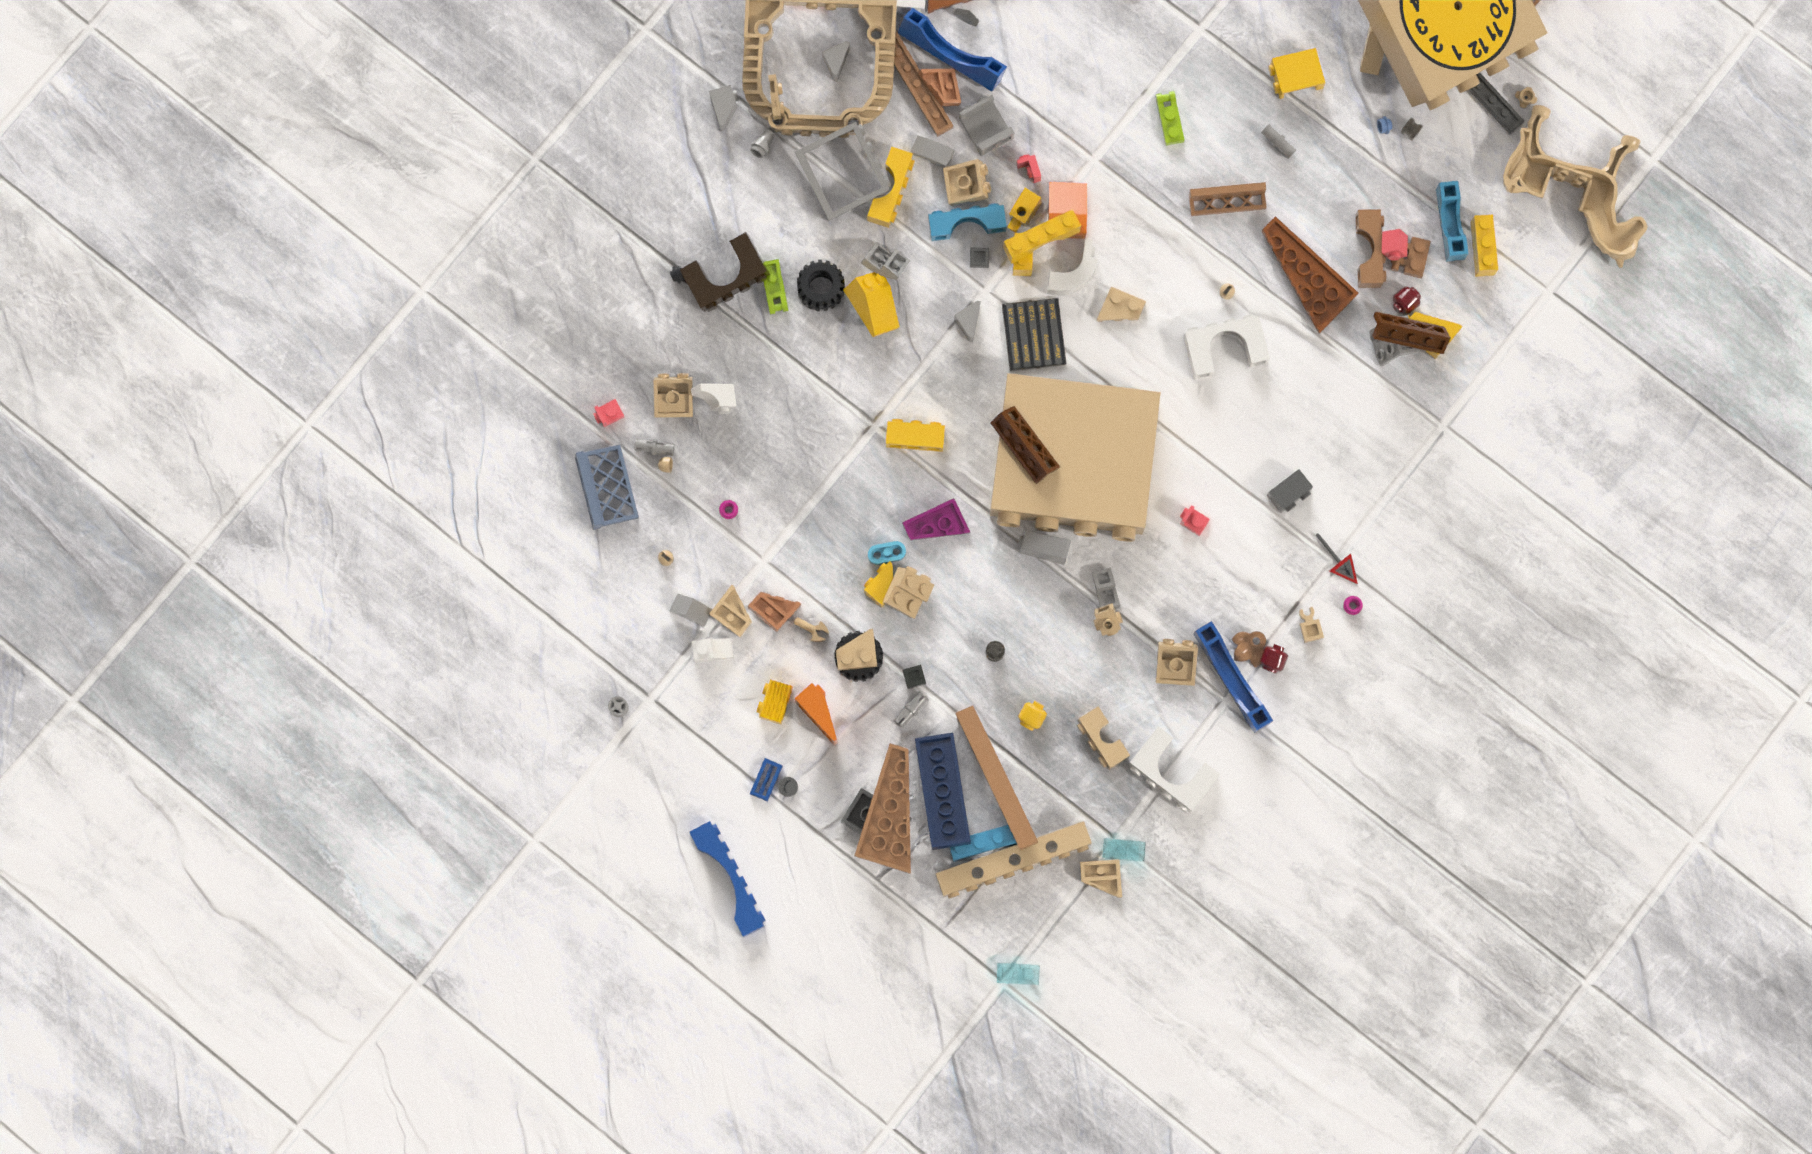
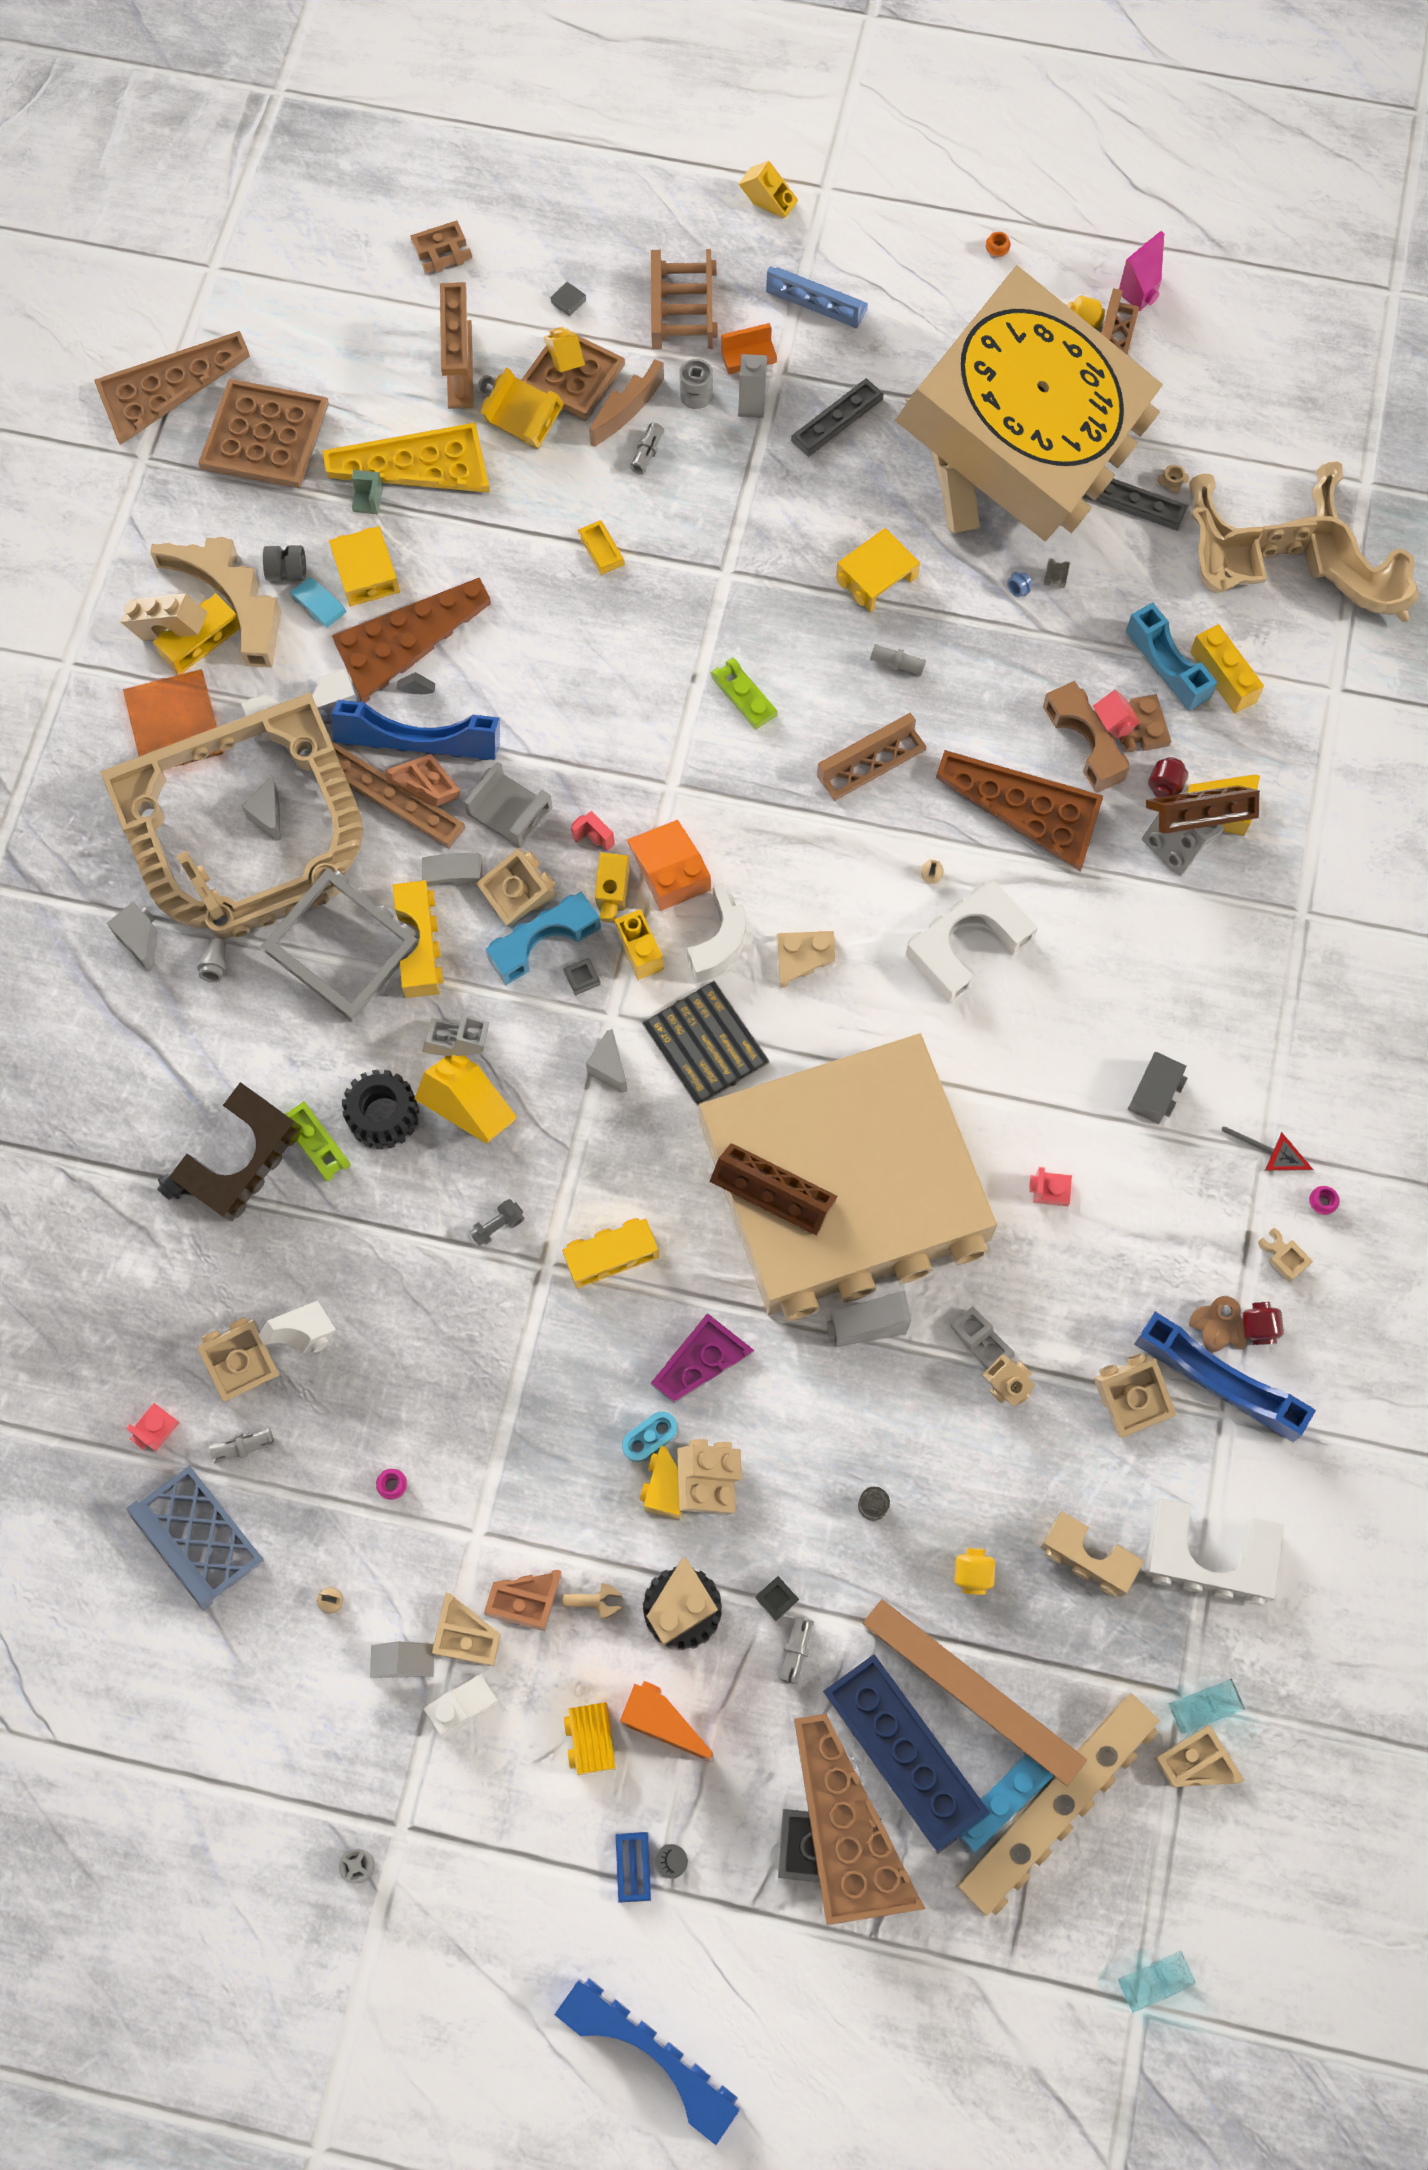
camera: 25 degrees left, 10 degrees down
(665, 464) = (269, 1462): tan hinge -> none
(867, 384) = (509, 1214): none -> dark grey bar
(1051, 230) = (637, 921): yellow arch -> none

